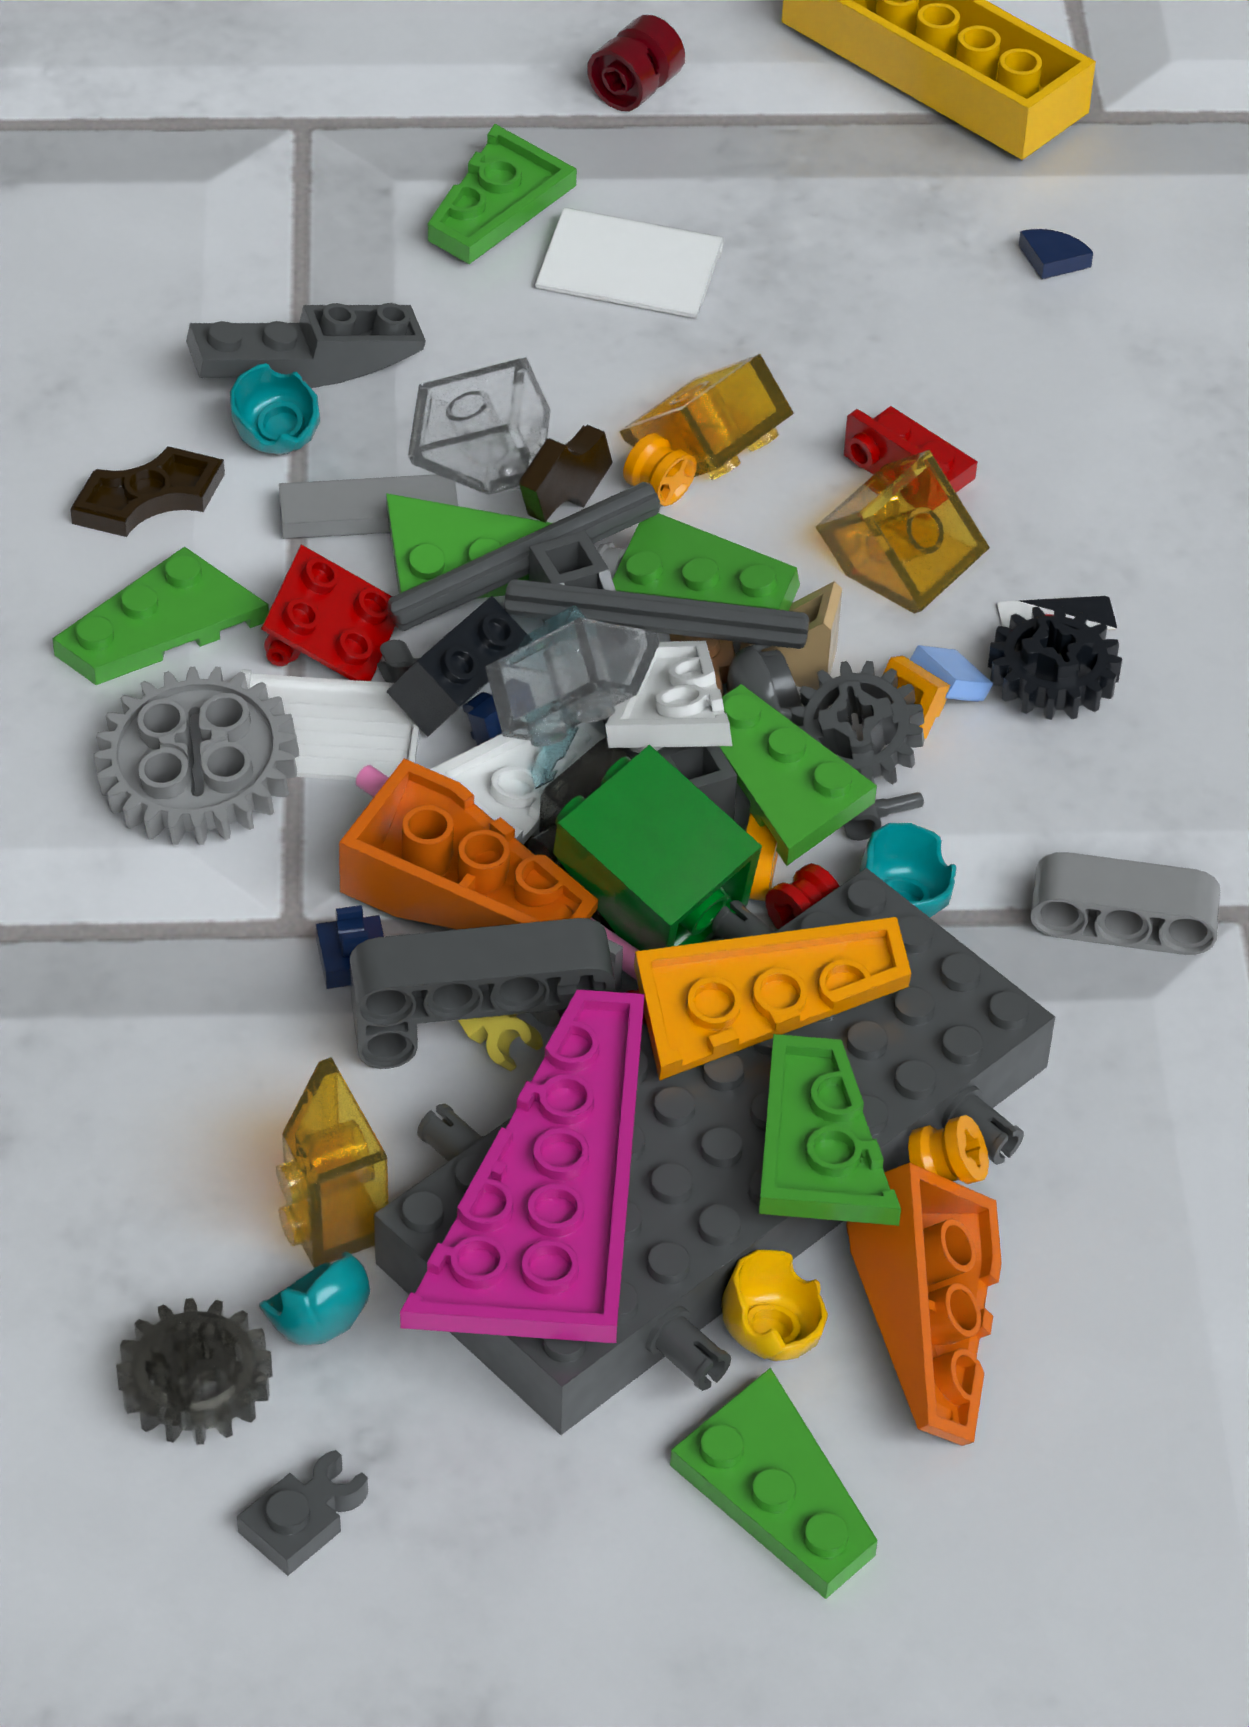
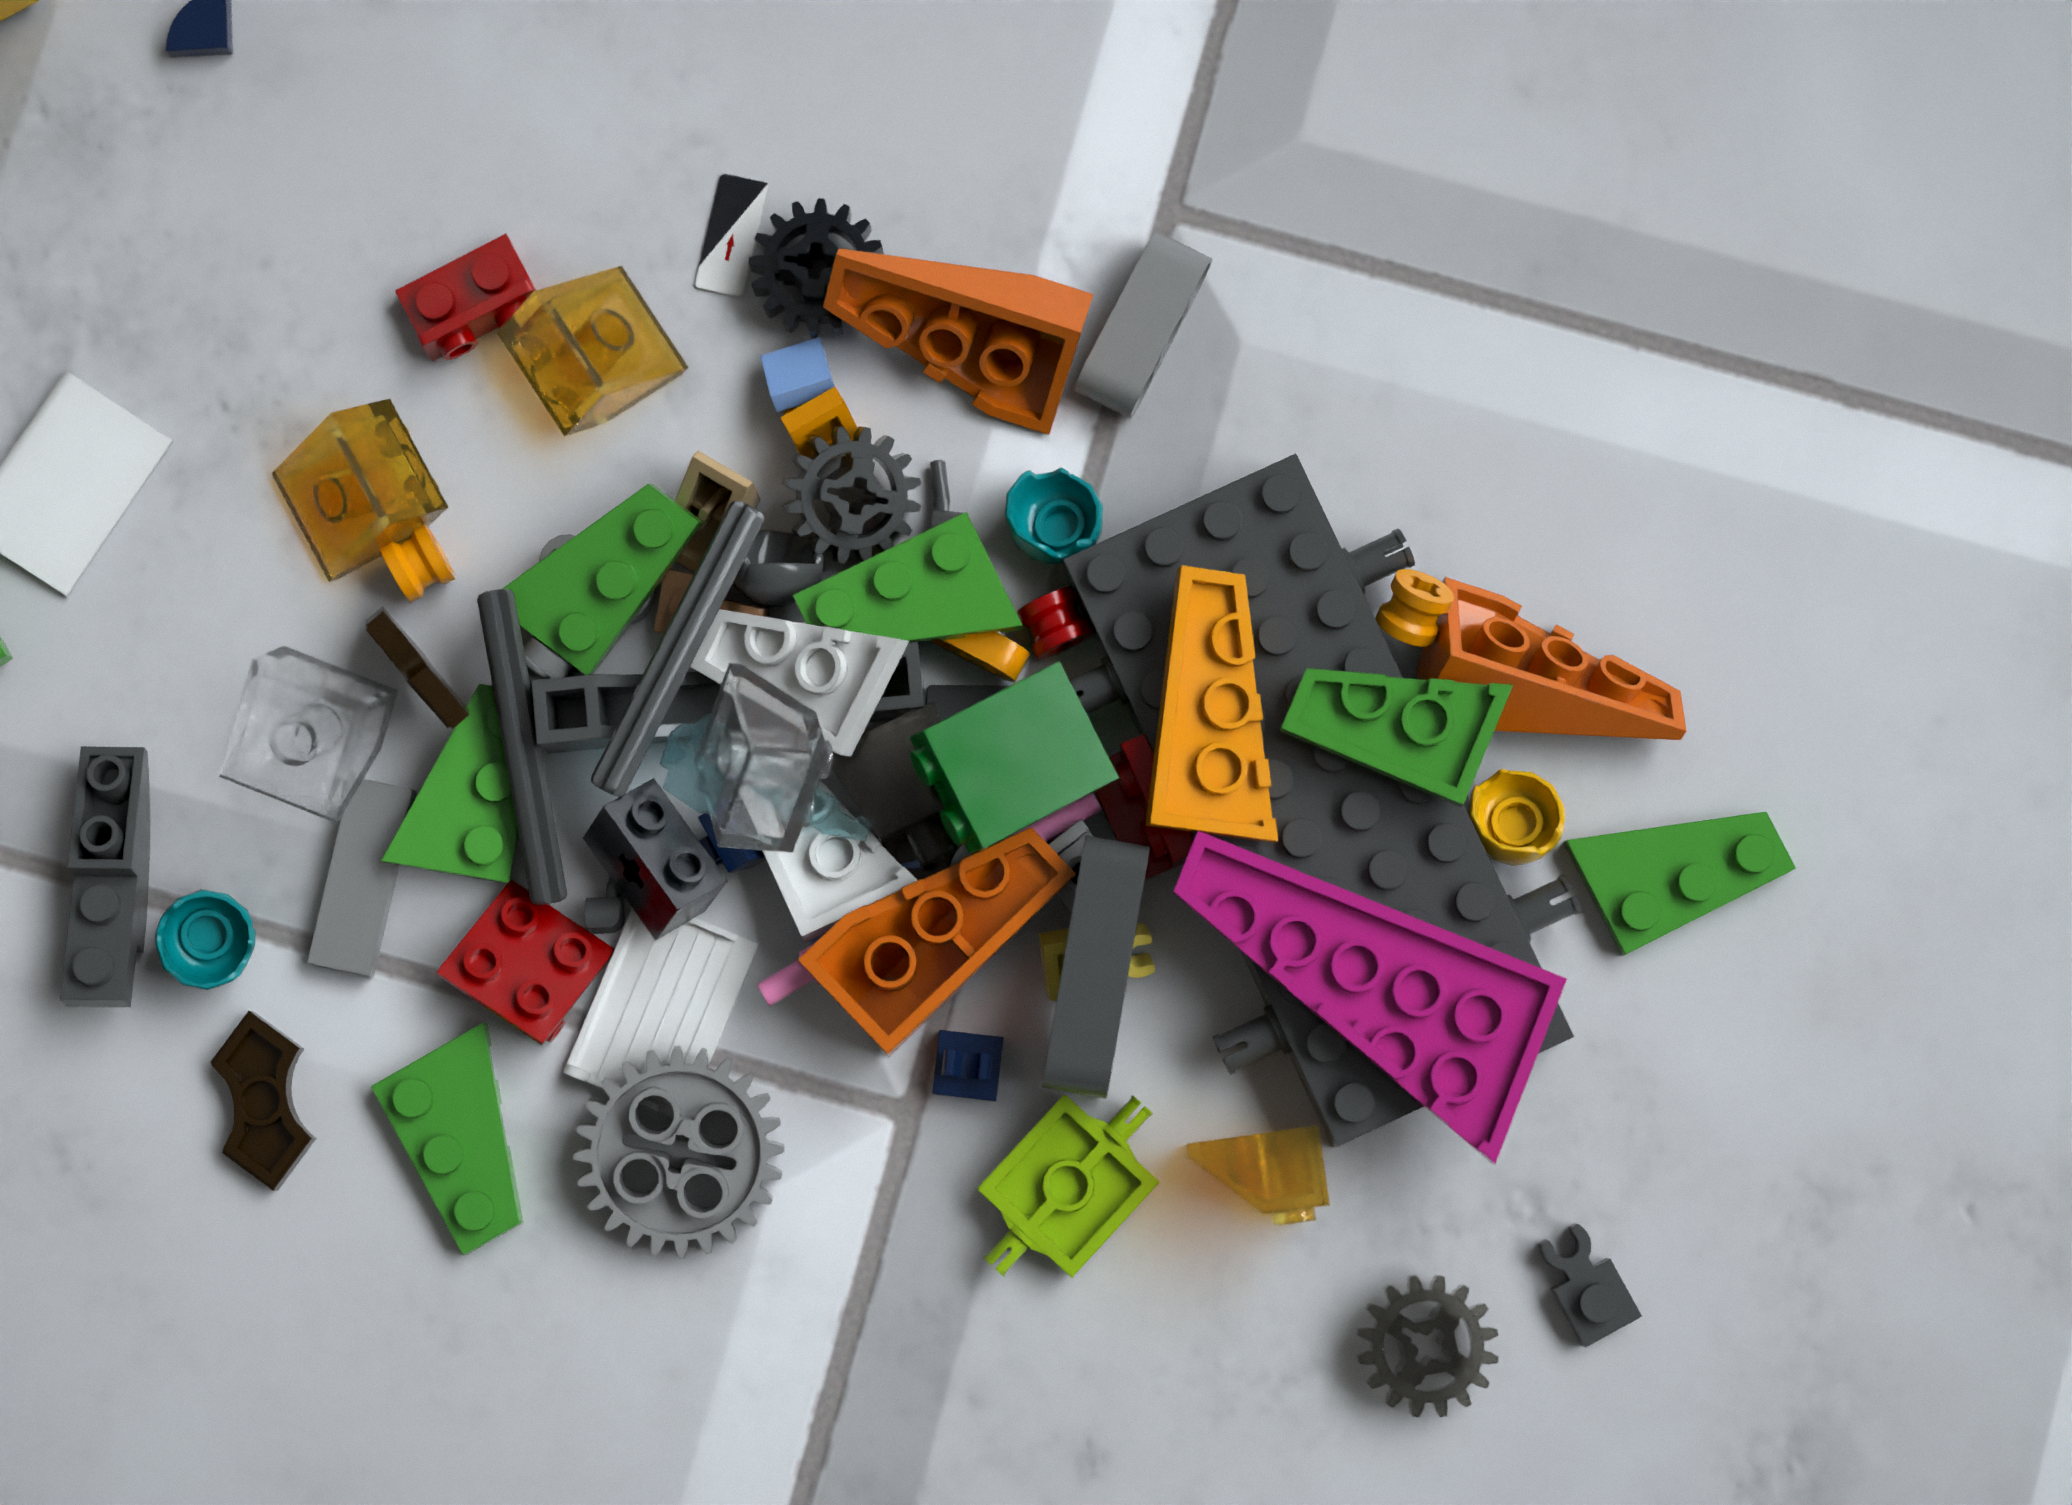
camera: 65 degrees left, 35 degrees up
(258, 1044) = (1068, 1185): none -> lime plate
(320, 1302) = (1384, 1217): teal hair -> none
(1058, 767) = (980, 328): none -> orange wedge

